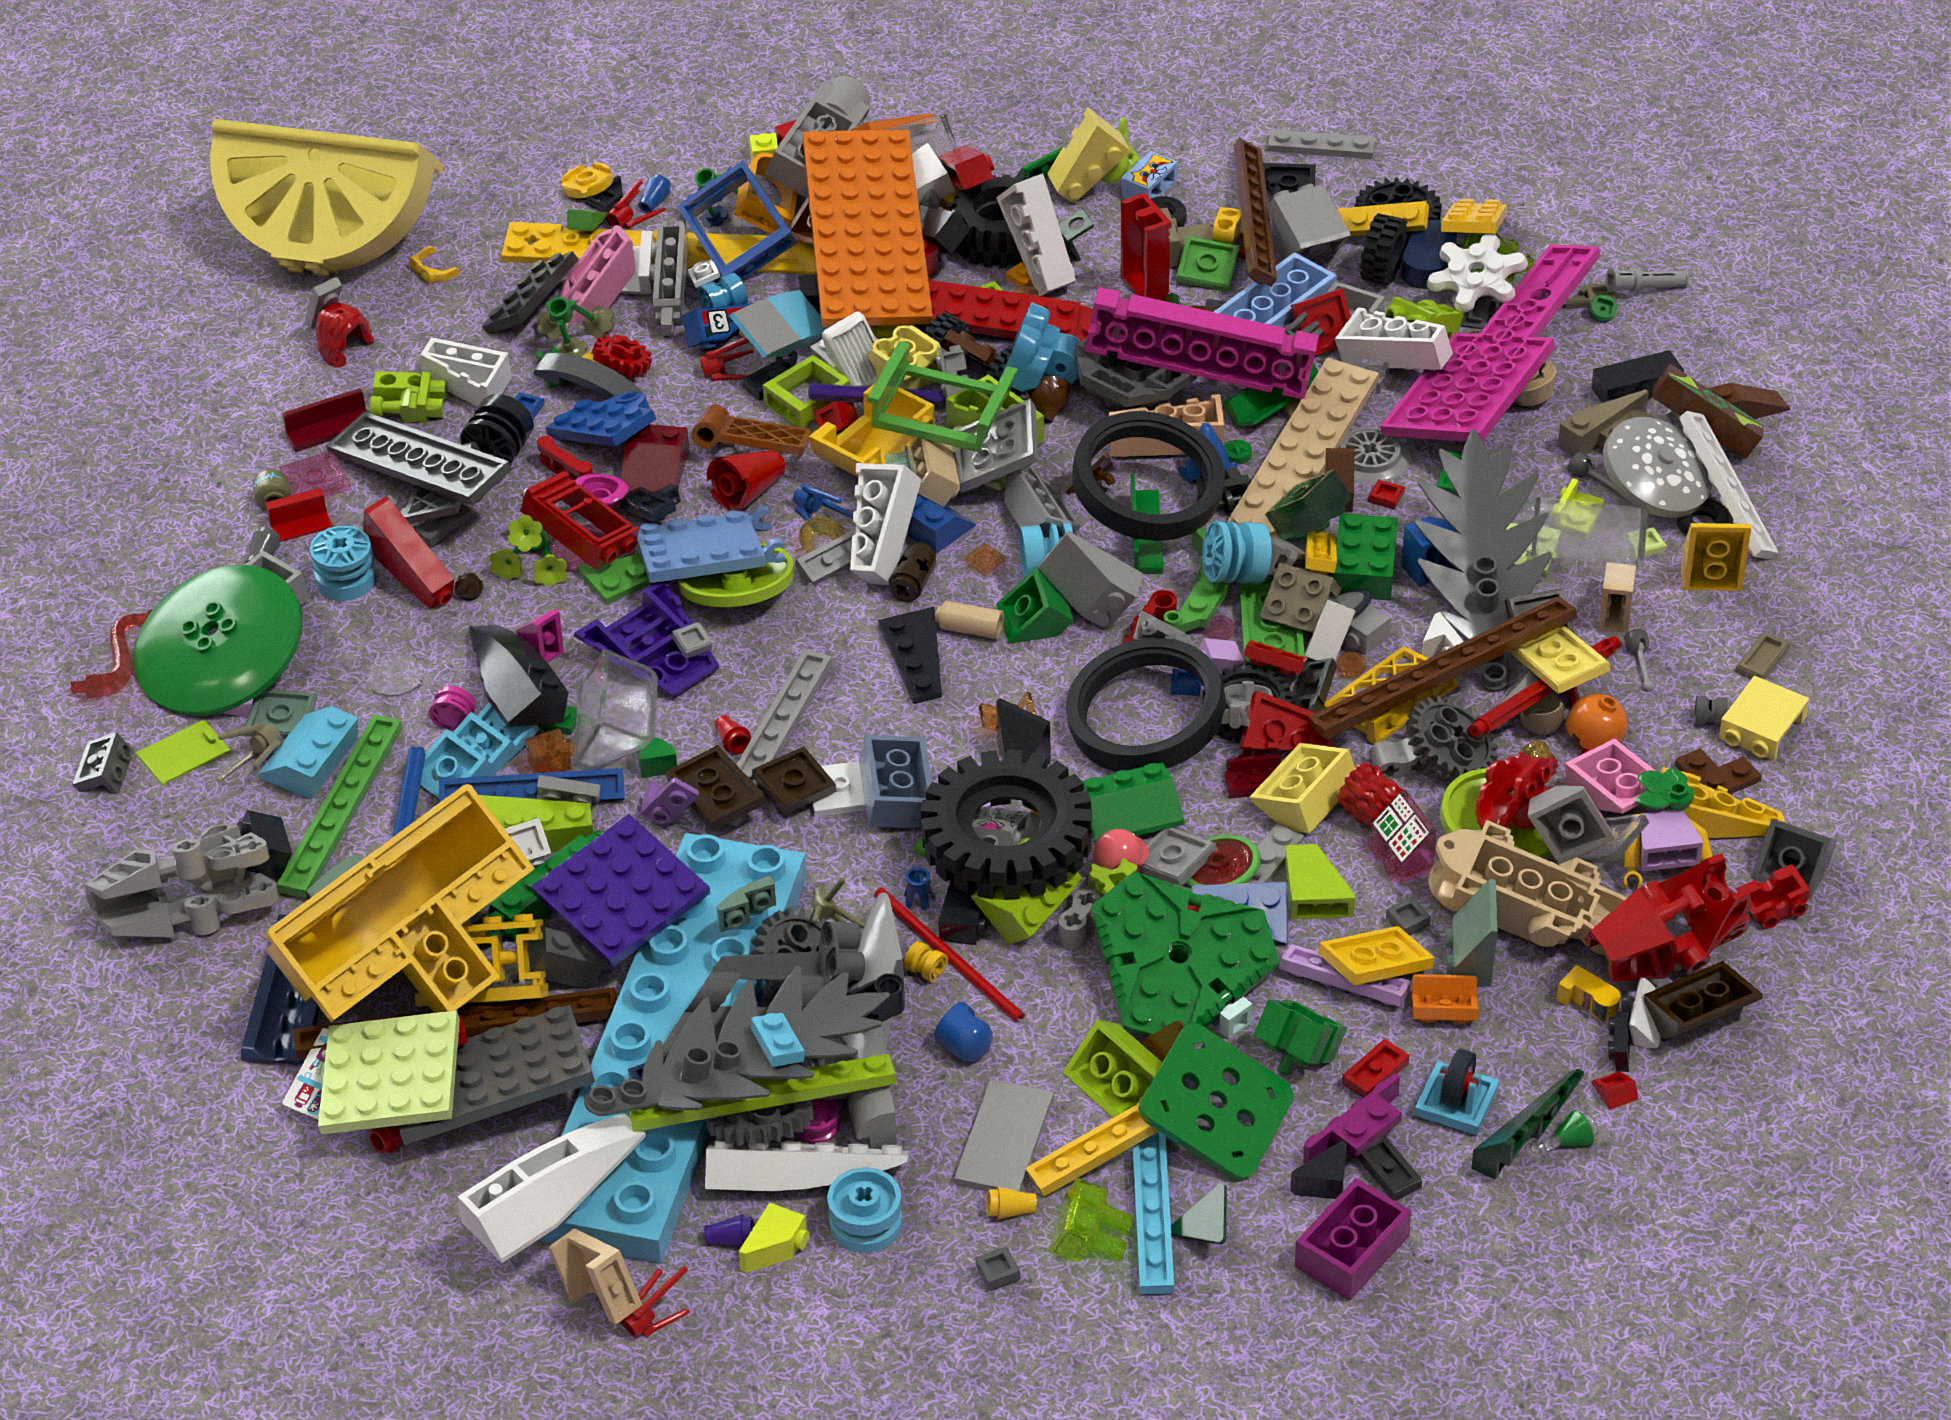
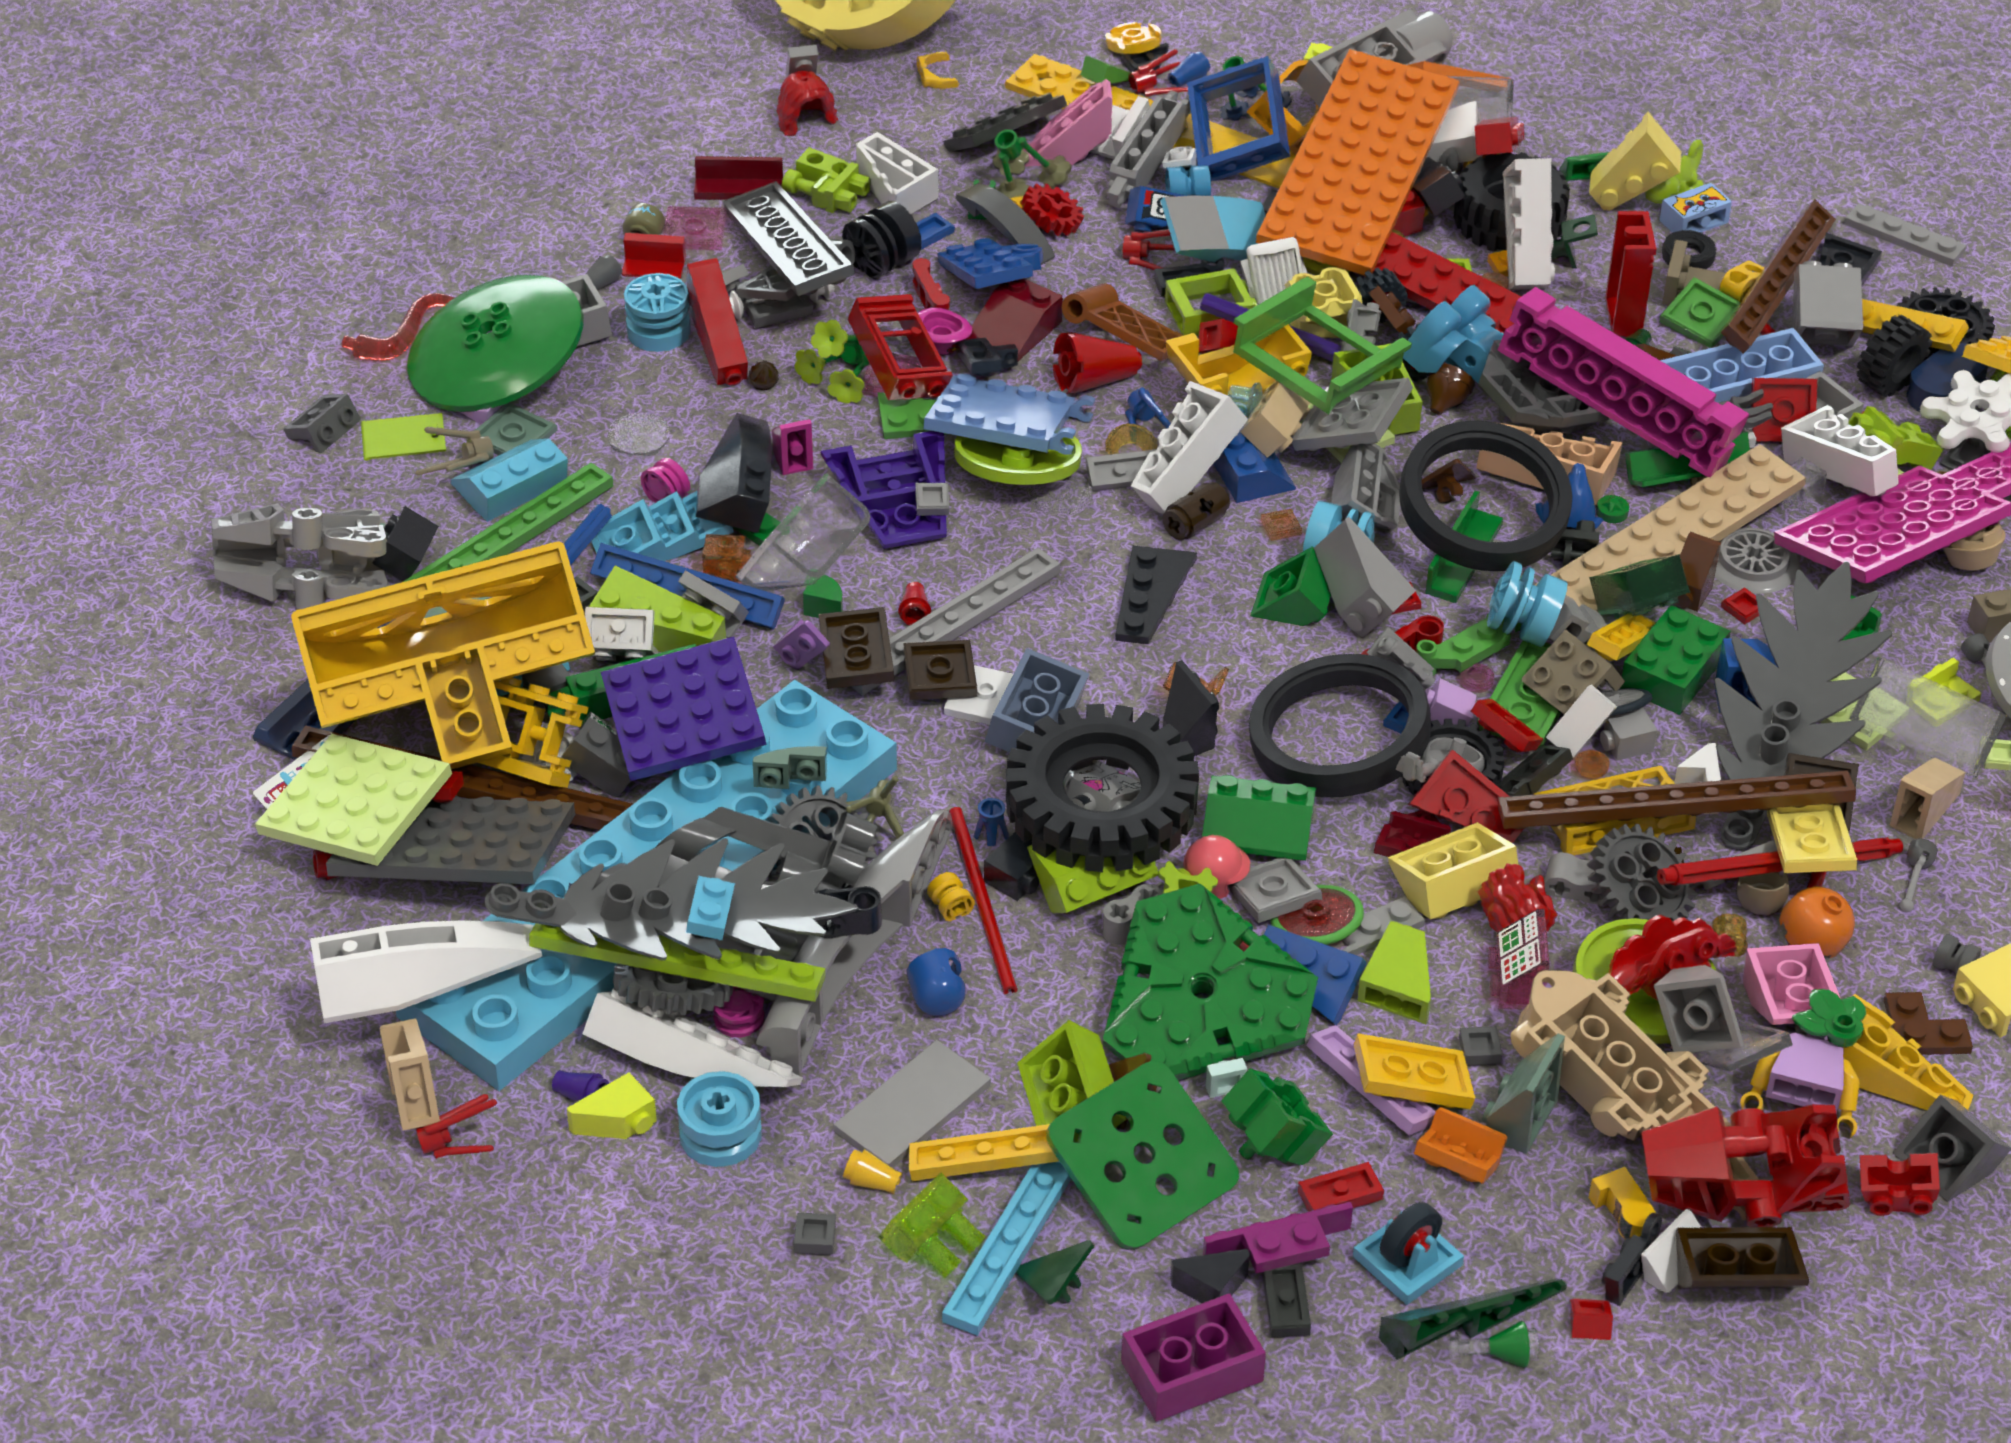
camera: 25 degrees right, 0 degrees up
(970, 619) = (1223, 577): tan brick -> none

